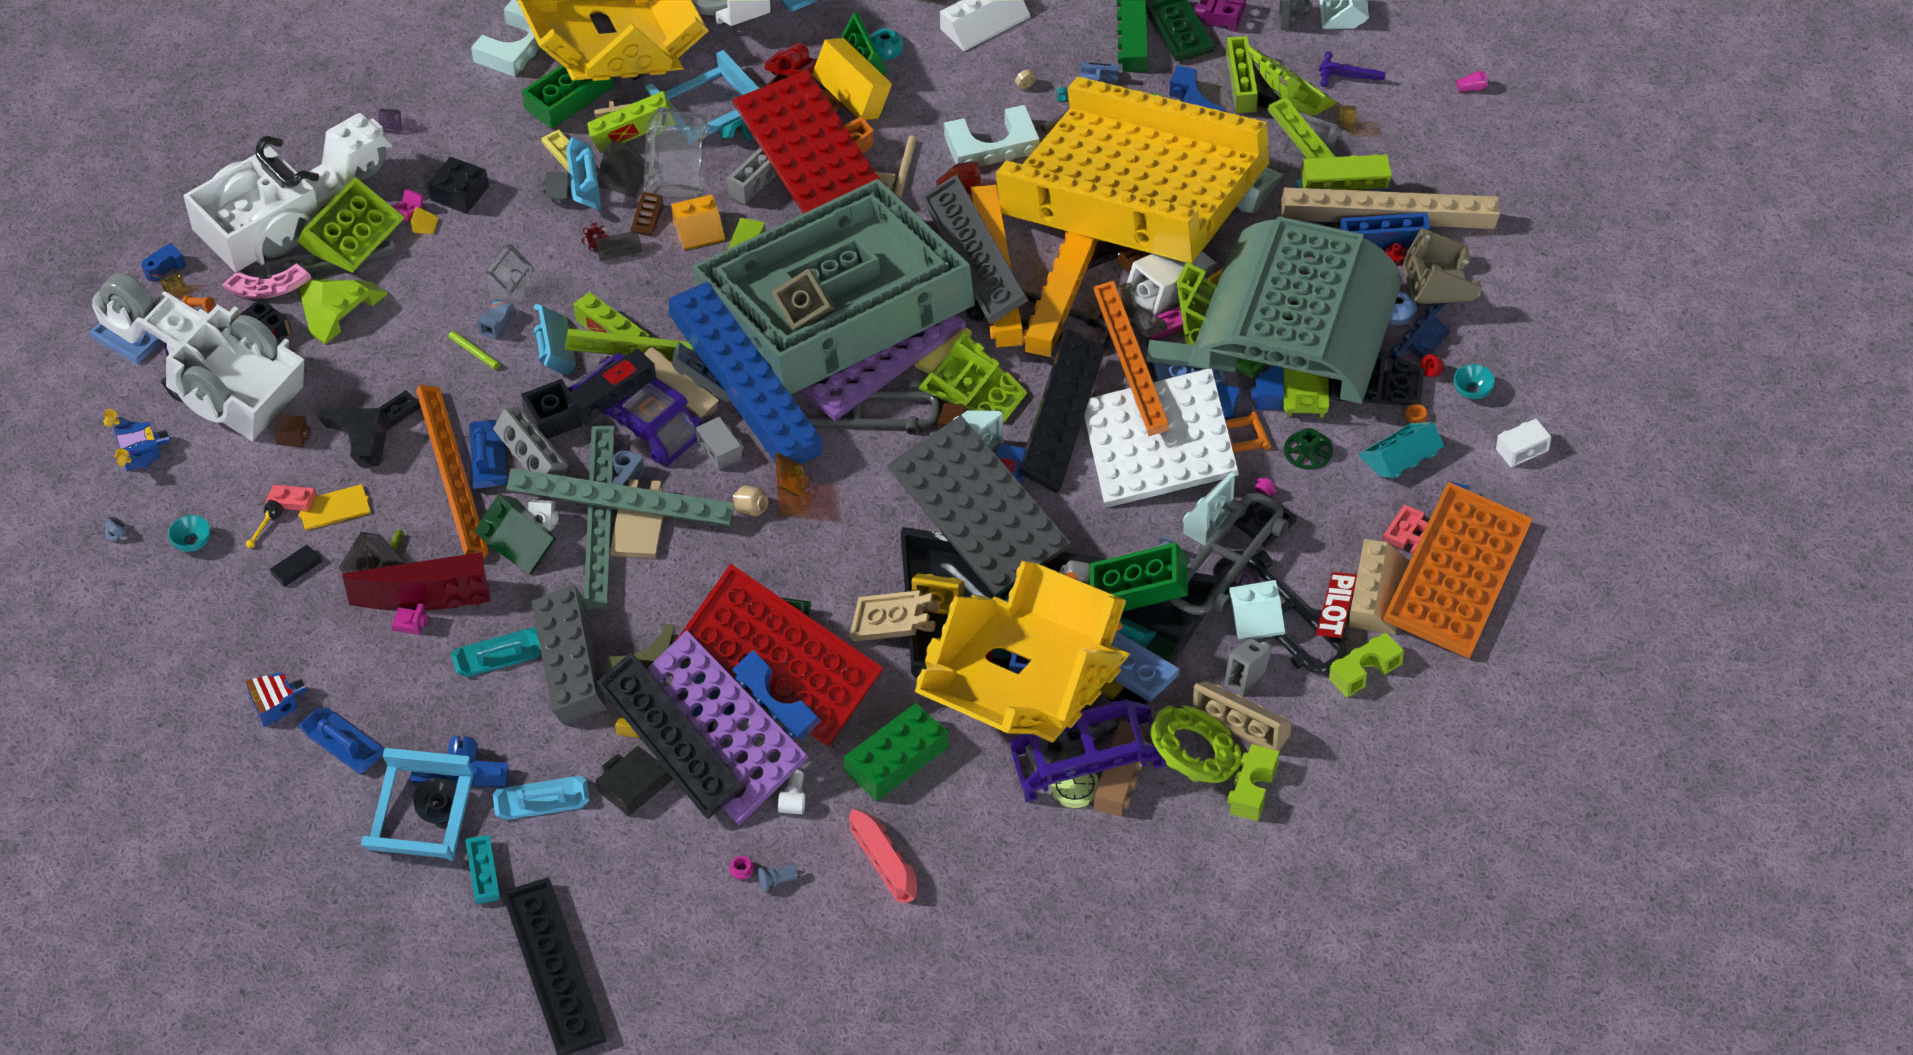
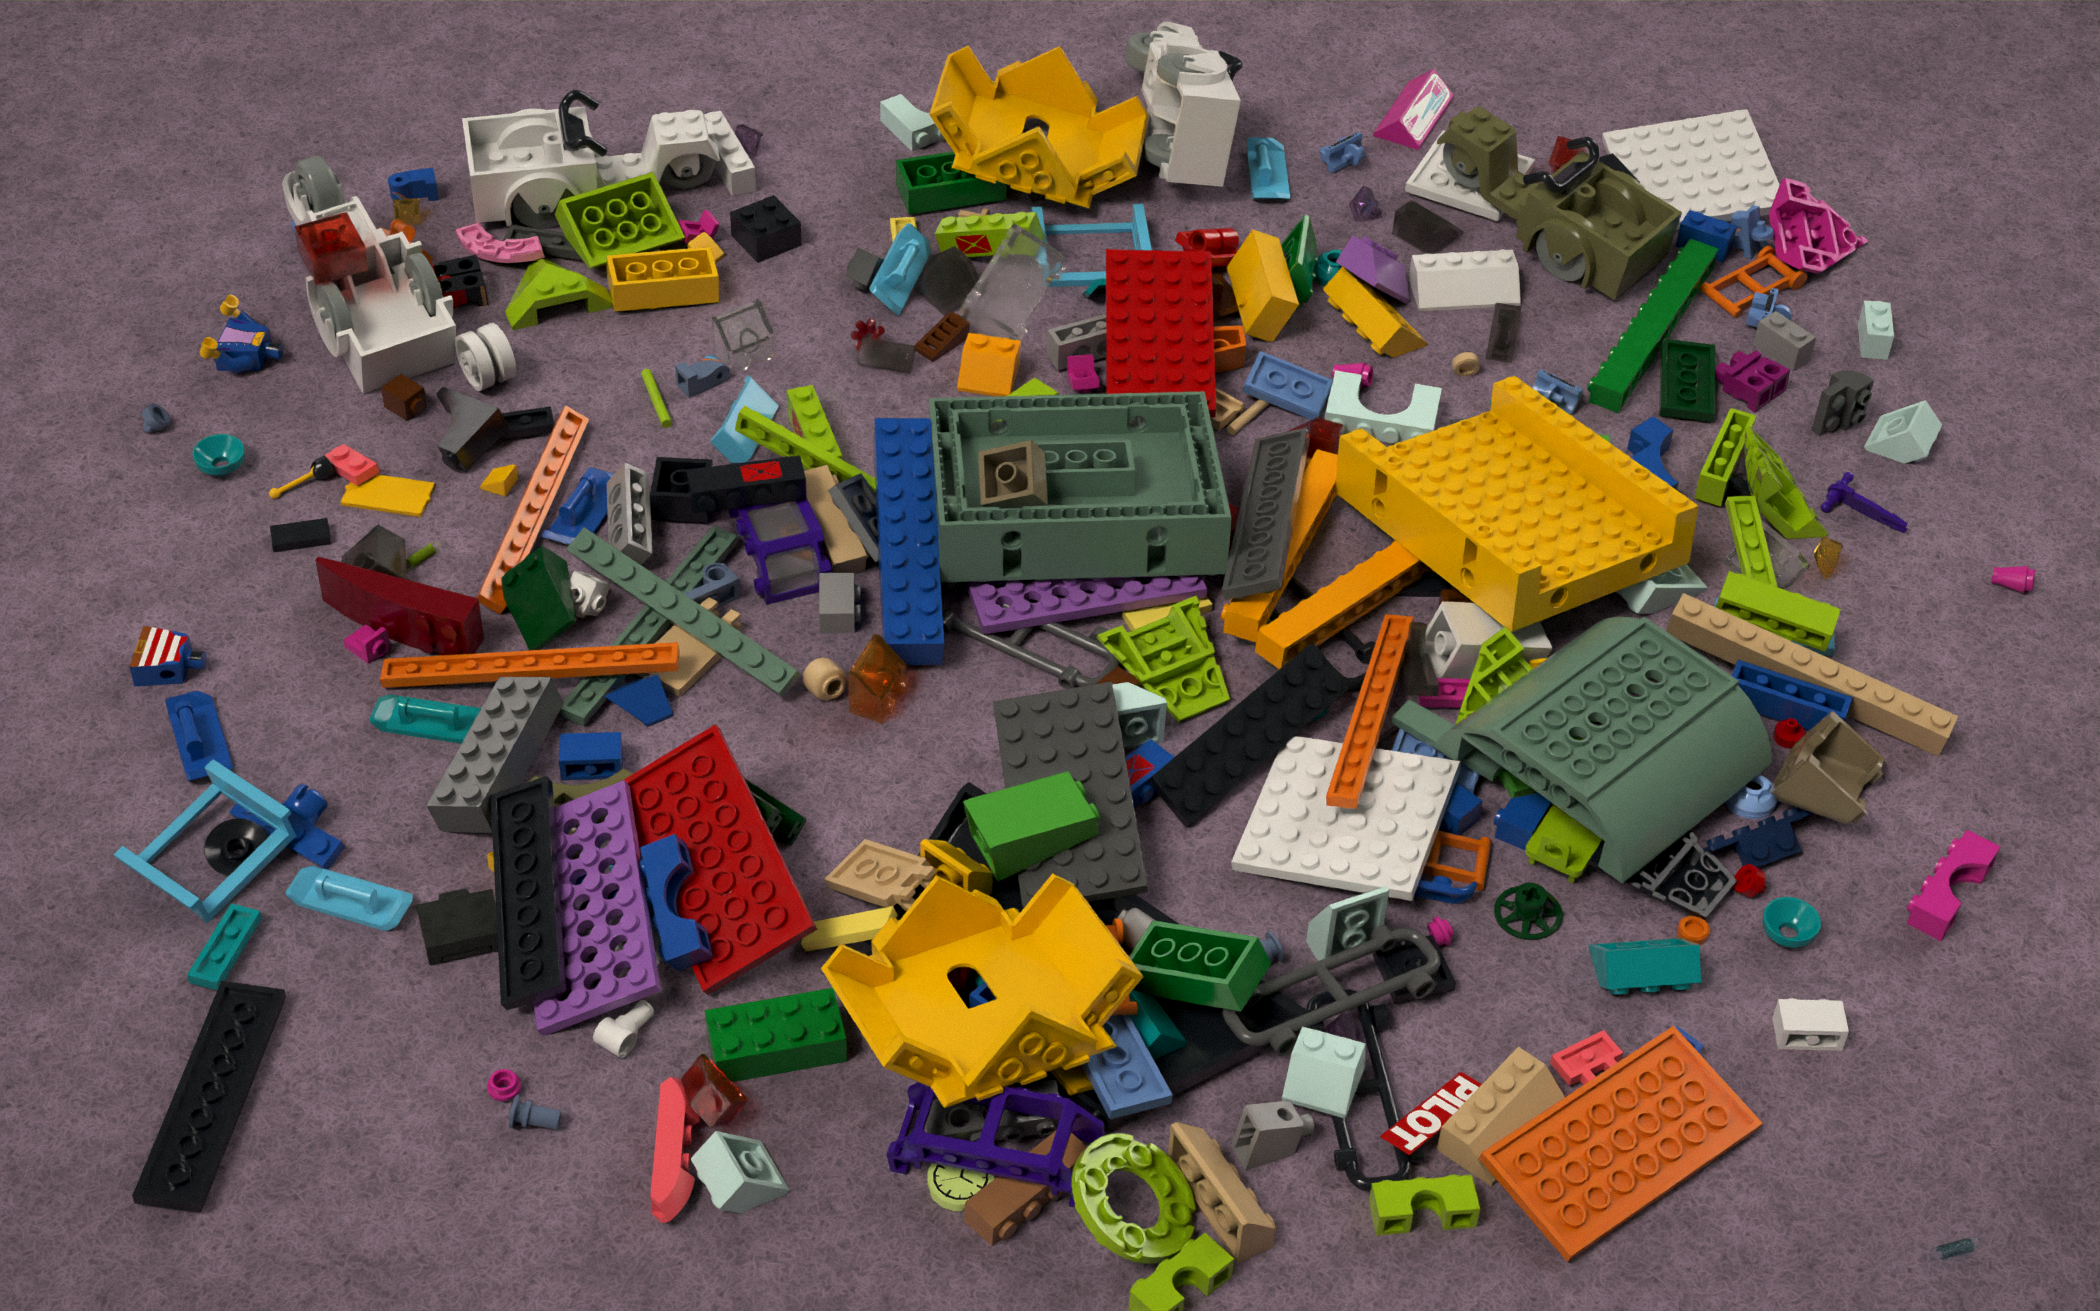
camera: 25 degrees right, 5 degrees down
(183, 340) = (331, 248): none -> clear red brick
(333, 373) = (485, 356): none -> white wheel
(405, 148) = (734, 165): none -> white brick
(408, 460) = (500, 480): none -> yellow slope
(413, 257) = (662, 279): none -> yellow brick
(542, 583) = (532, 663): none -> orange plate
(631, 626) = (590, 755): none -> blue brick
(636, 569) = (643, 700): none -> blue slope
(766, 200) = (1082, 373): none -> dark pink bracket
(883, 805) = (712, 1093): none -> clear red slope
(901, 657) = (847, 929): none -> light yellow tile
(915, 148) = (1287, 386): none -> medium blue tile
(923, 31) = (1376, 266): none -> medium lavender slope
(935, 849) = (738, 1172): none -> light aqua slope
(938, 68) = (1372, 315): none -> yellow slope
(953, 115) = (1357, 368): none -> dark pink cone
(973, 535) = (1030, 822): none -> bright green slope
(1033, 43) = (1503, 332): none -> clear smoke piece
(1249, 459) = (1442, 889): none -> blue piece
(1554, 330) = (1937, 907): none -> dark pink arch
(1685, 541) = (1955, 1248): none -> clear light blue piece

